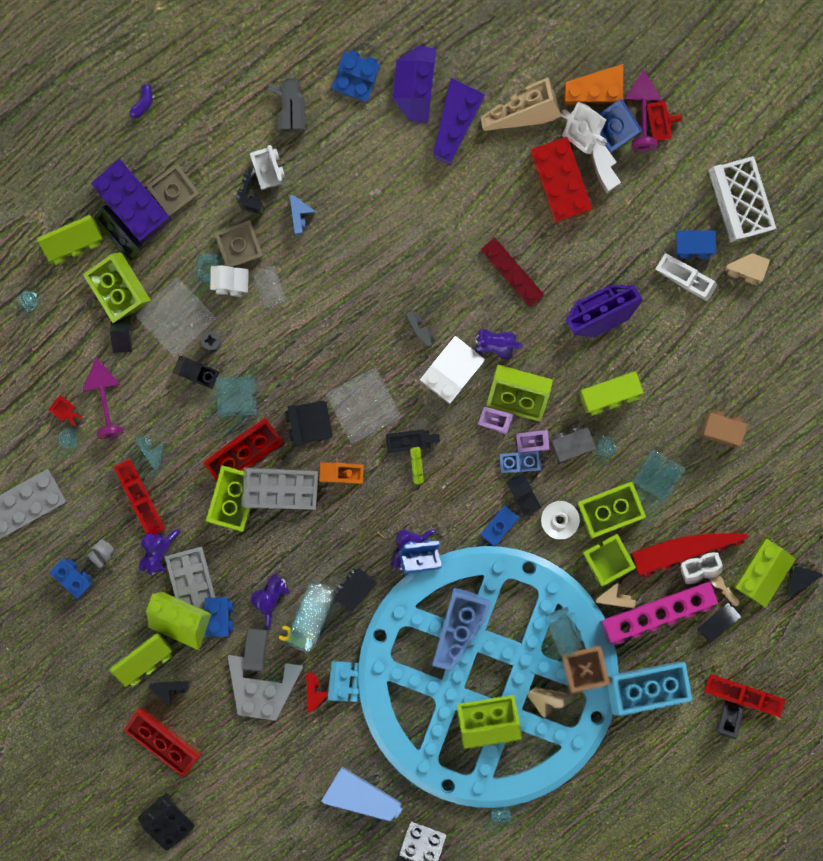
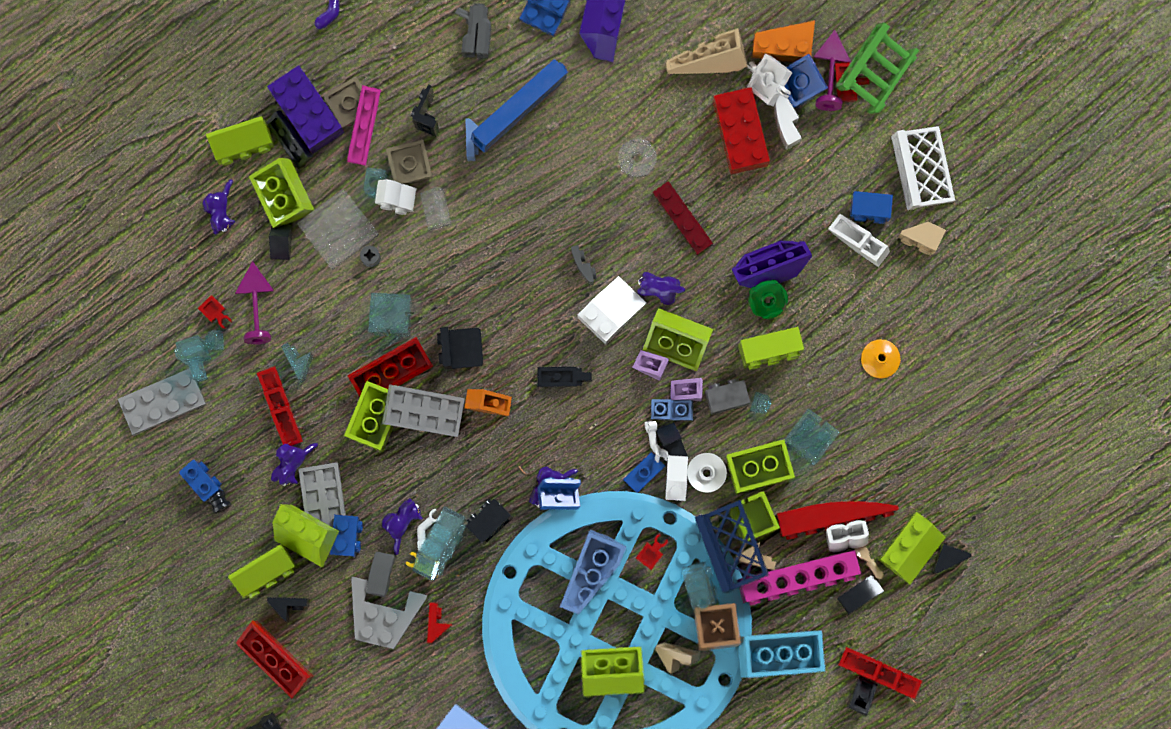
camera: 10 degrees right, 5 degrees down
(28, 300) = (191, 198): clear light blue plate -> none
(49, 455) = (193, 354): none -> clear light blue brick
(55, 307) = (216, 205): none -> dark purple animal
(91, 596) = (219, 502): none -> black wheel
(100, 553) = (234, 459): light grey piece -> none
(190, 212) = (363, 125): none -> dark pink tile
(195, 372) = (351, 285): black slope -> none
(266, 167) = (445, 89): white bracket -> none
(290, 603) = (423, 526): none -> white arm
(340, 680) = (463, 615): medium azure plate -> none
(341, 177) = (519, 105): none -> blue brick
(363, 405) = (518, 337): clear plate -> none
(417, 465) = (565, 389): lime axle -> none
(455, 208) = (646, 152): none -> clear plate
(458, 114) = (643, 57): dark purple wedge -> none
(502, 482) = (651, 428): none -> white arm
(513, 605) = (650, 553): none -> red plate
(531, 529) = (676, 478): none -> white slope
(579, 602) = (715, 552): none -> dark blue fence
(596, 339) = (761, 292): none -> green plate
(669, 104) = (859, 66): none -> bright green fence
(710, 398) = (873, 365): none -> light orange dish
(723, 429) = (883, 396): medium nougat brick -> none

